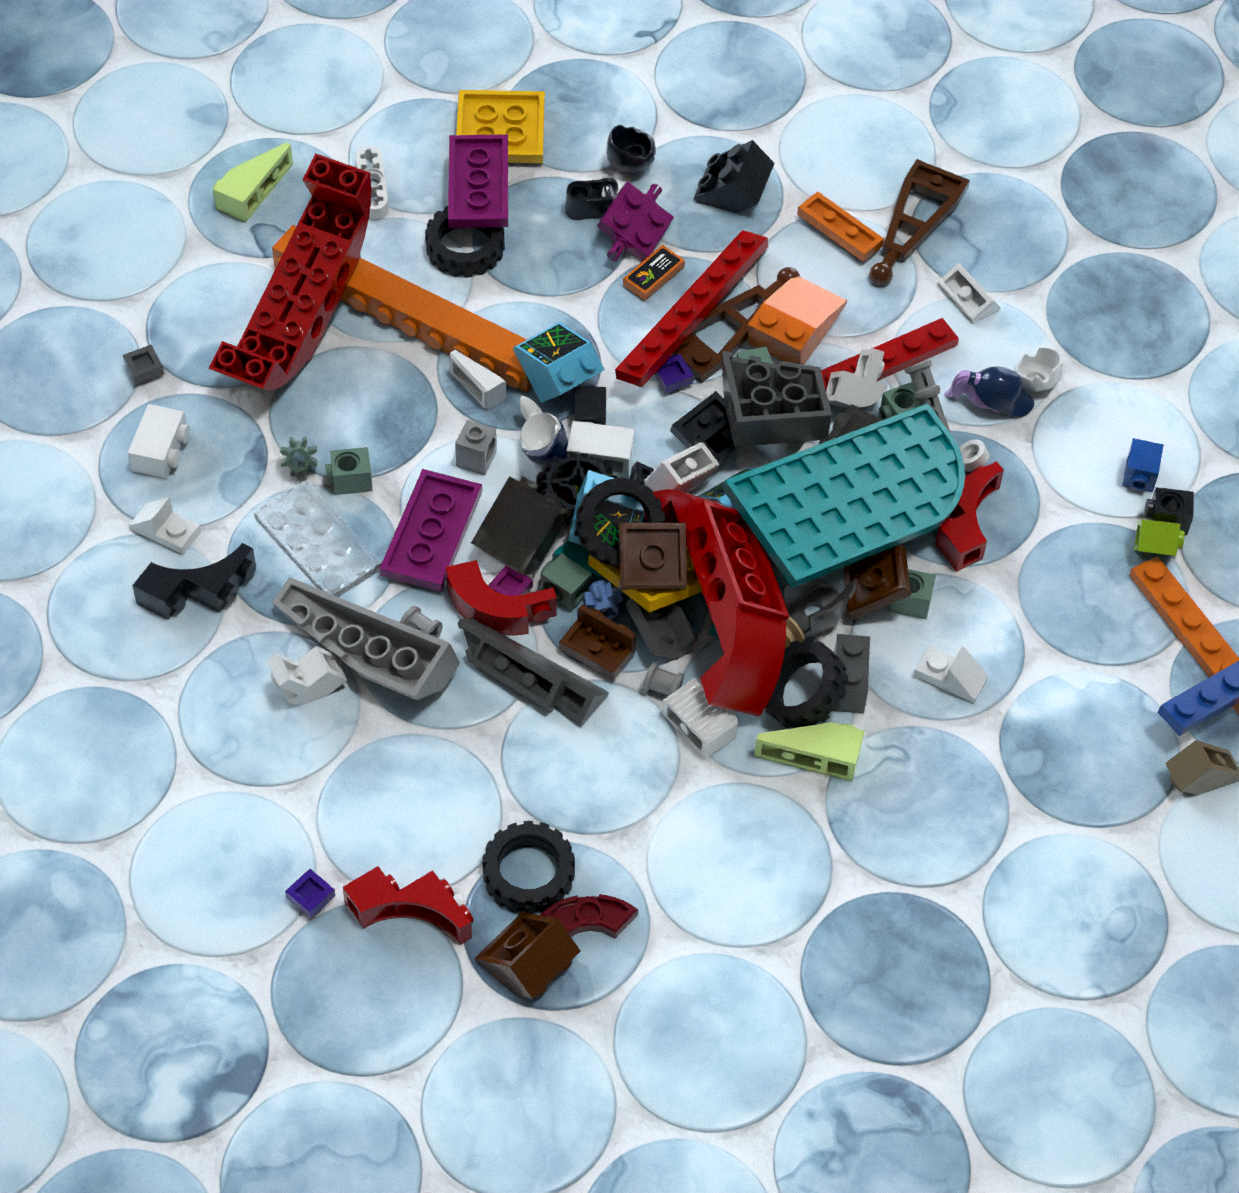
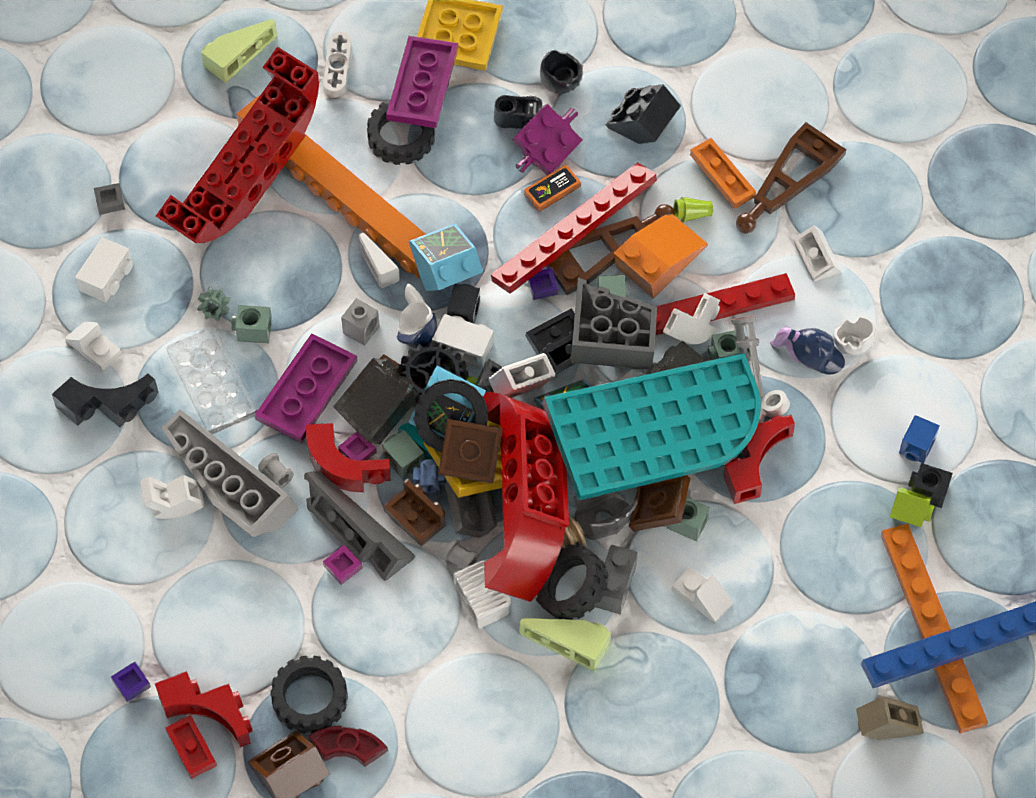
camera: 15 degrees right, 5 degrees up
(403, 953) = (191, 746): none -> red plate
(528, 715) = (342, 564): none -> magenta plate
(818, 268) = (691, 209): none -> lime cone

